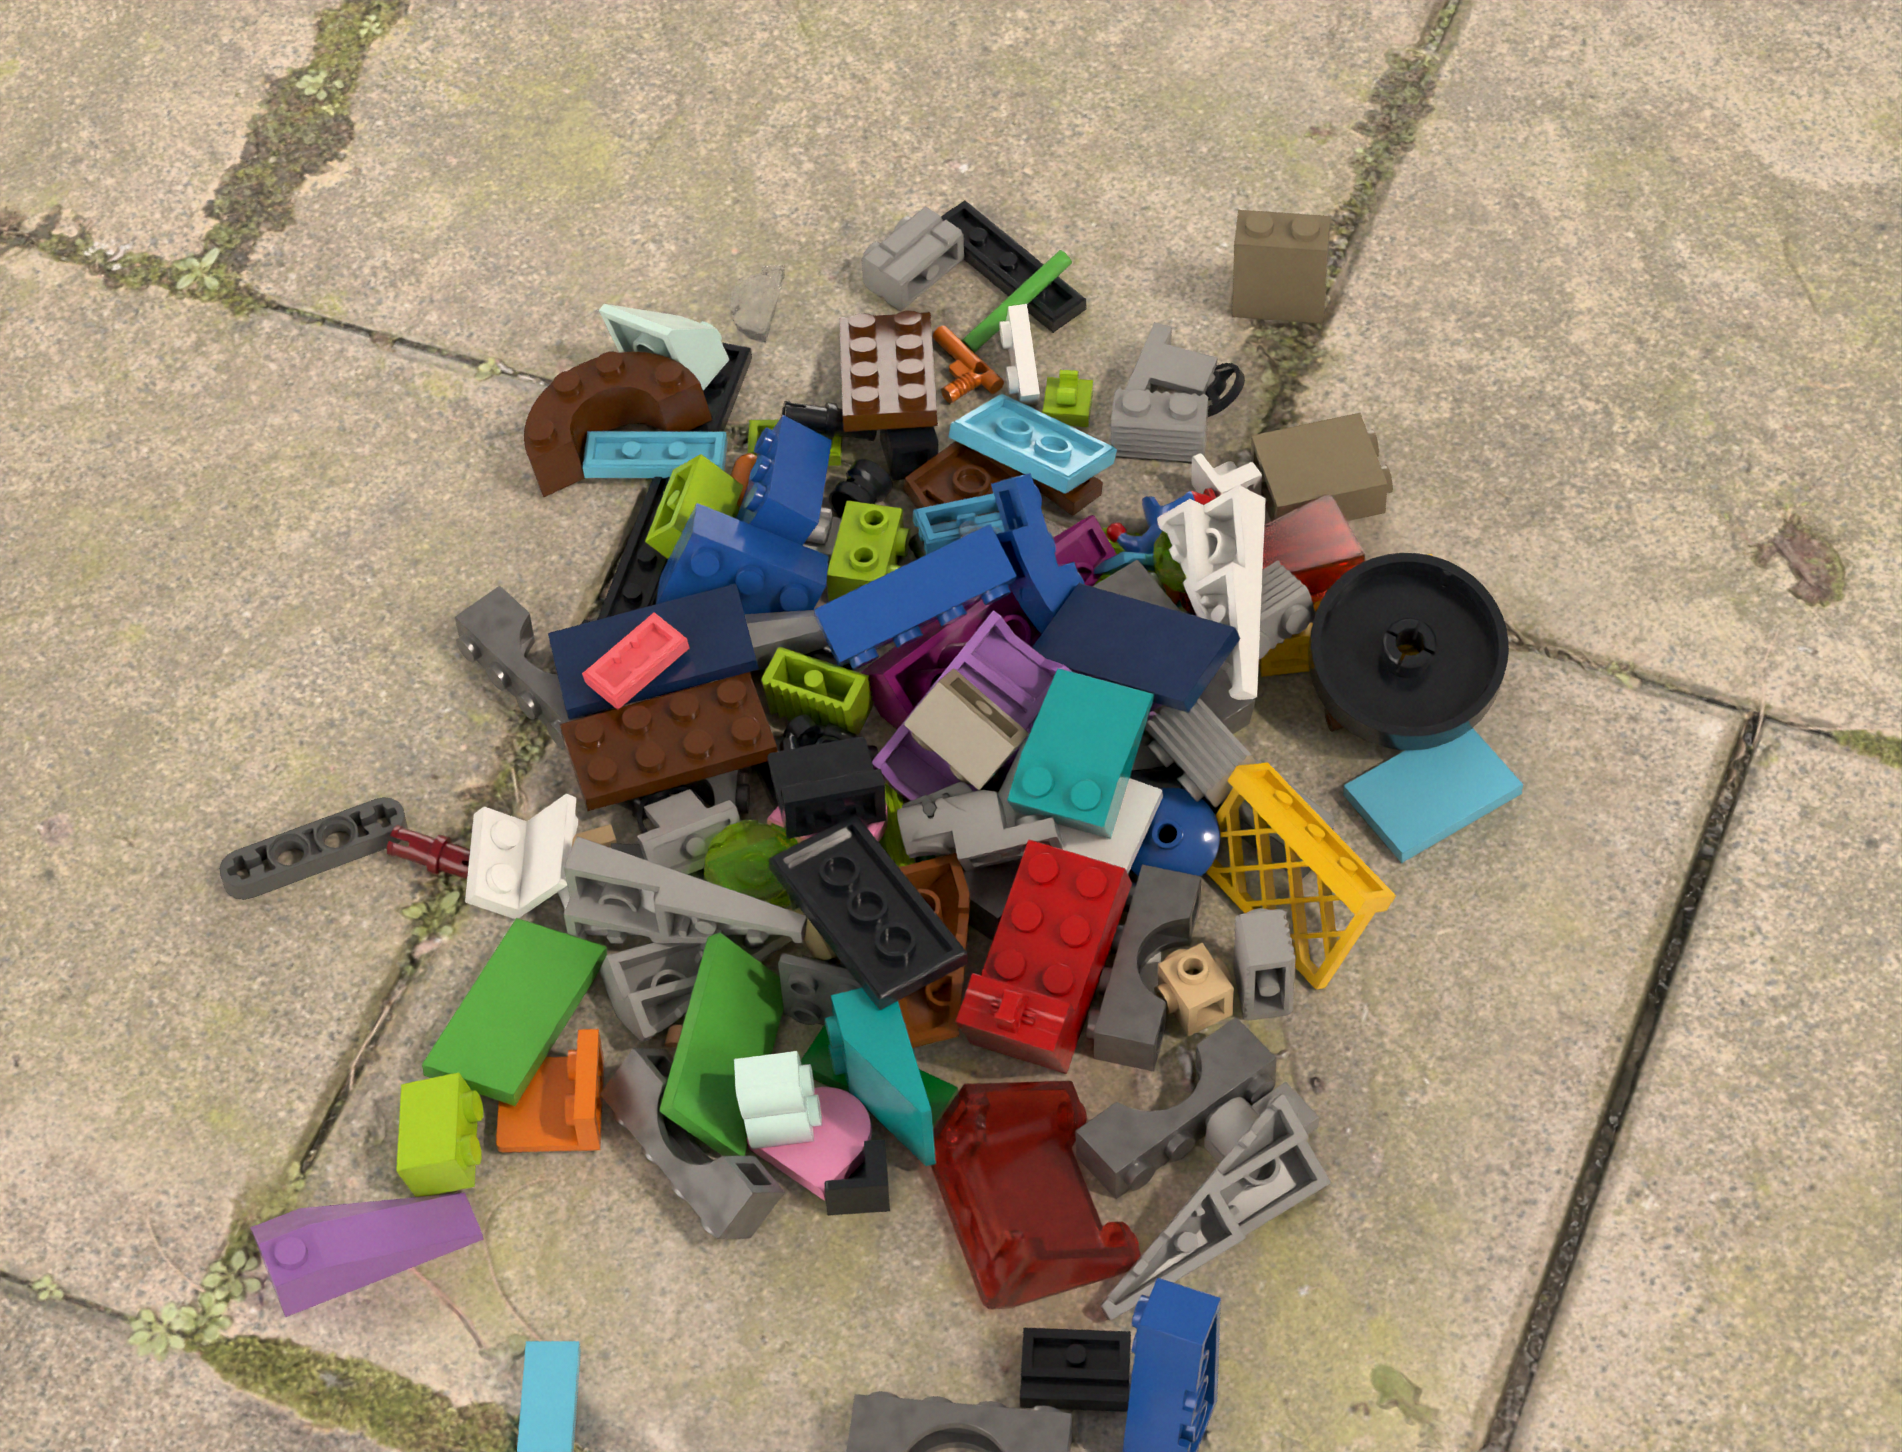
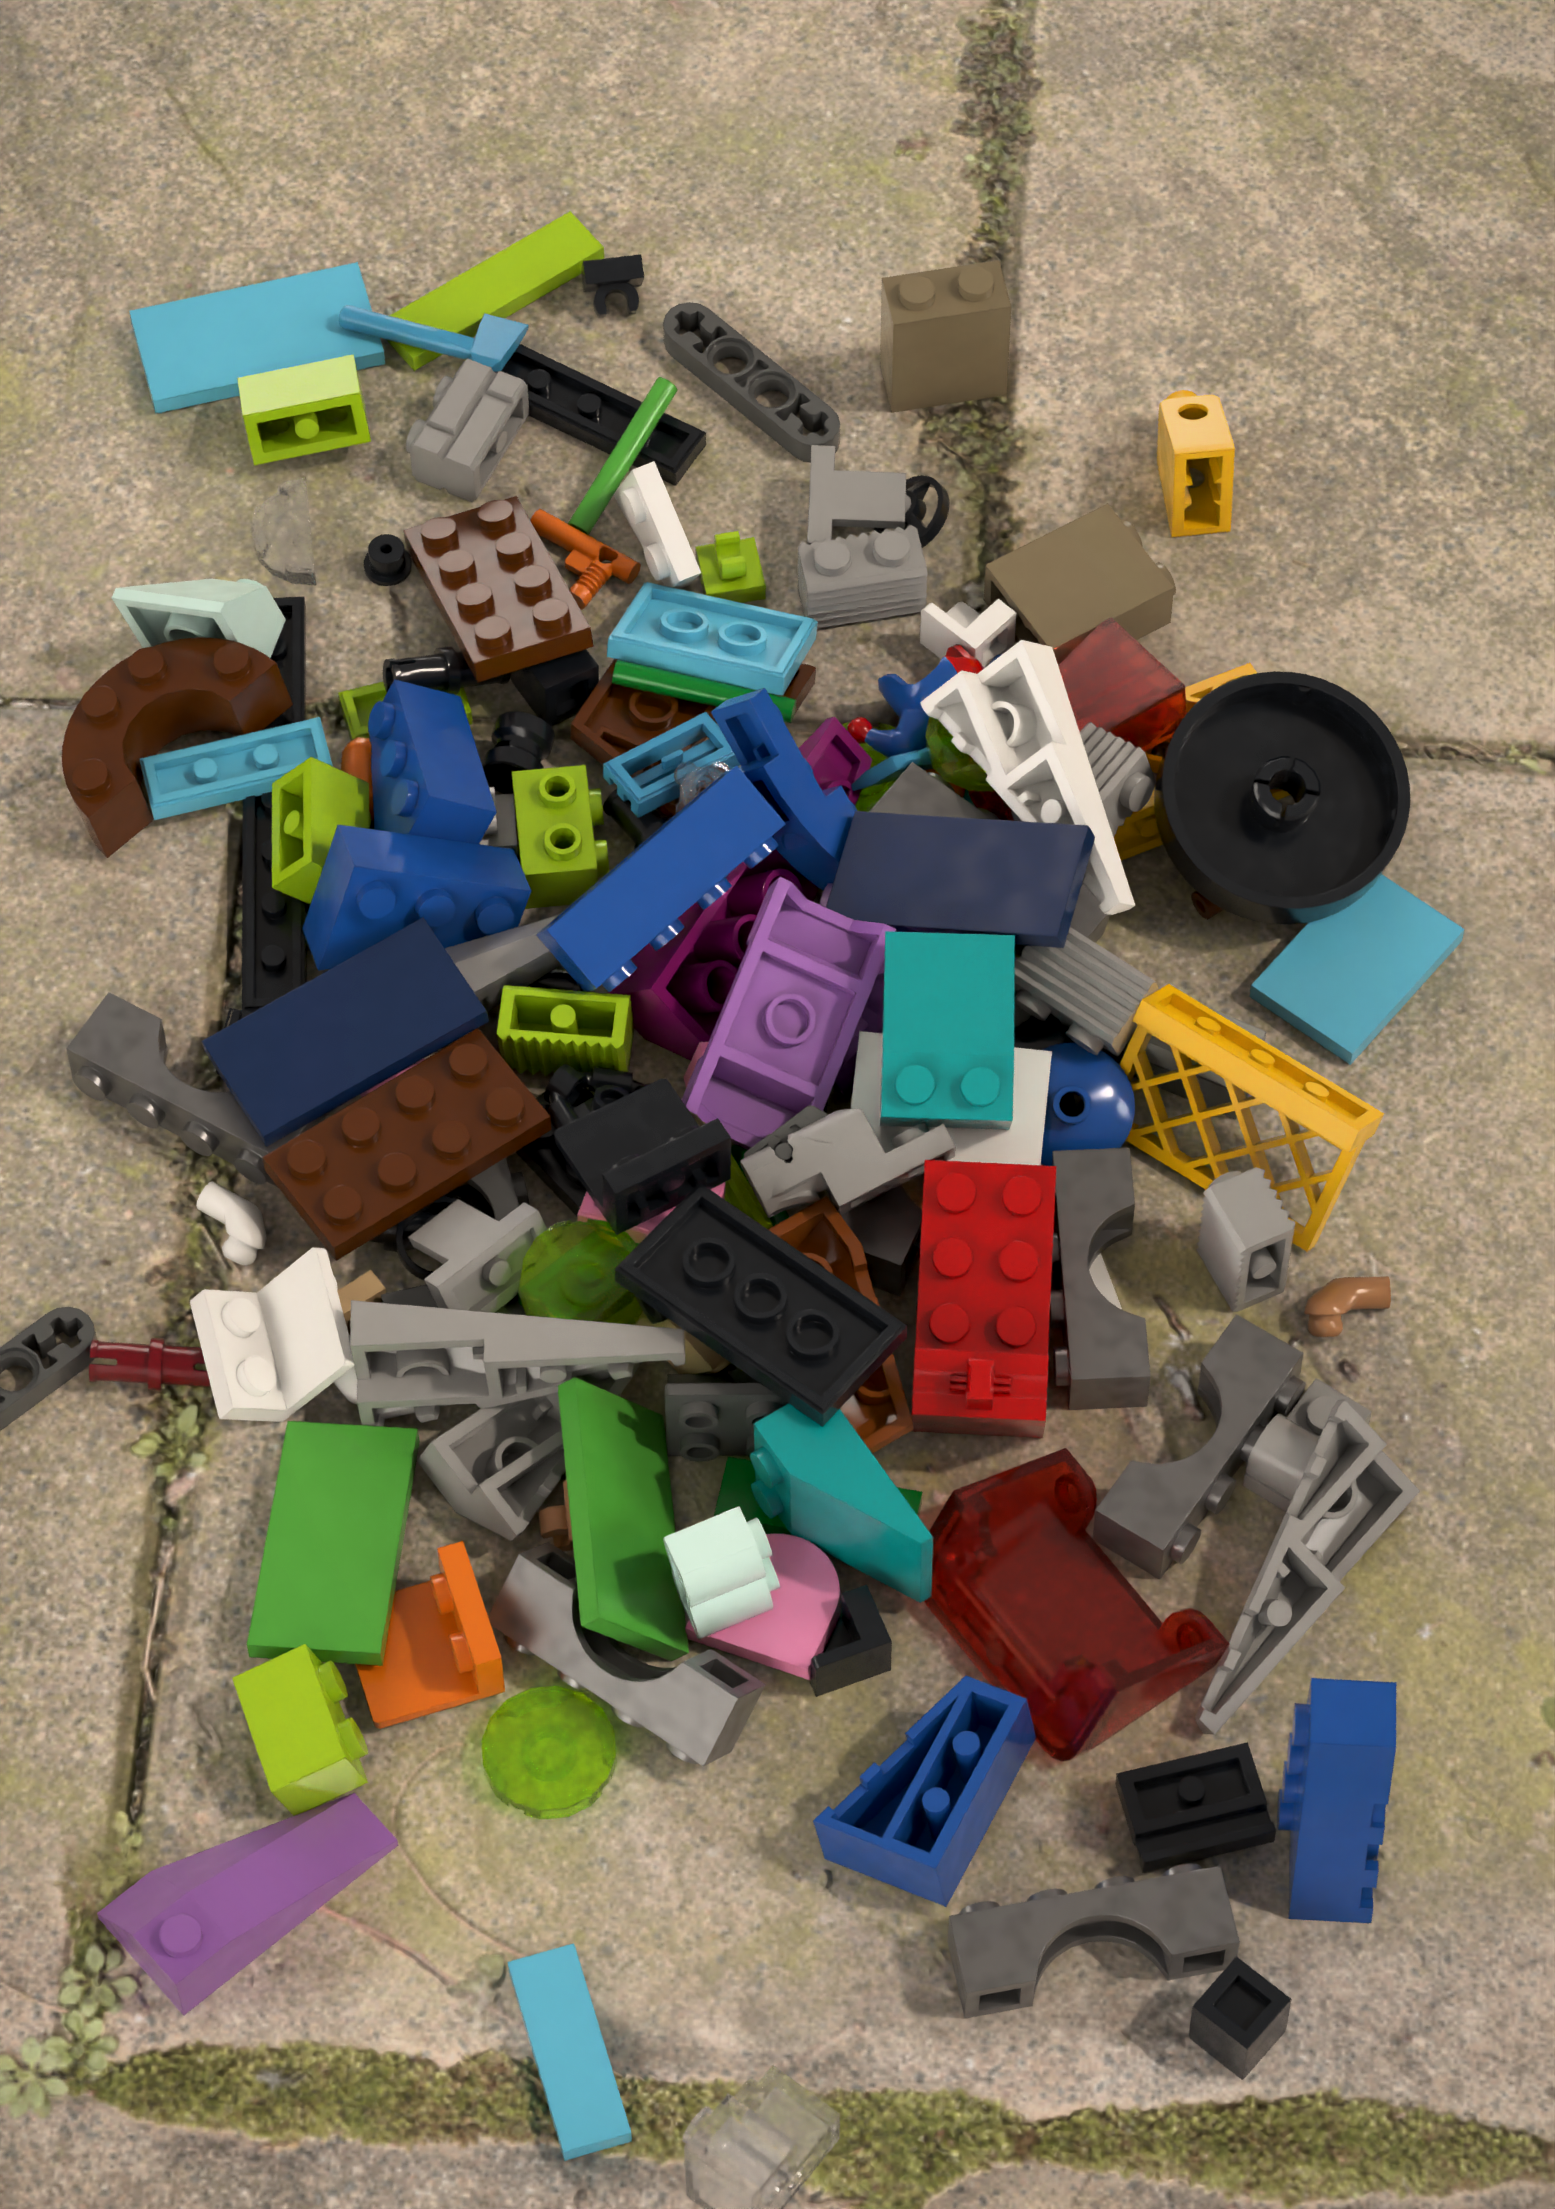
camera: 20 degrees left, 5 degrees up
(538, 771) = (241, 1219): none -> white arm
(615, 1201) = (549, 1752): none -> clear neon green tile
(635, 660) = (336, 1051): coral plate -> none
(787, 162) = (206, 342): none -> medium azure tile
(796, 217) = (303, 409): none -> lime brick
(821, 337) = (387, 561): none -> black piece
(881, 1306) = (935, 1795): none -> blue wedge
(950, 204) = (492, 346): none -> dark azure piece
(965, 729) = (798, 1039): brick -> none
(969, 166) = (502, 283): none -> lime tile
(997, 471) = (688, 687): none -> green bar
(1057, 173) = (612, 276): none -> black tile
(1129, 273) = (745, 386): none -> dark grey beam
(1195, 988) = (1169, 1289): tan brick -> none
(1329, 1027) = (1342, 1295): none -> medium nougat arm
(1439, 382) = (1195, 436): none -> yellow torso

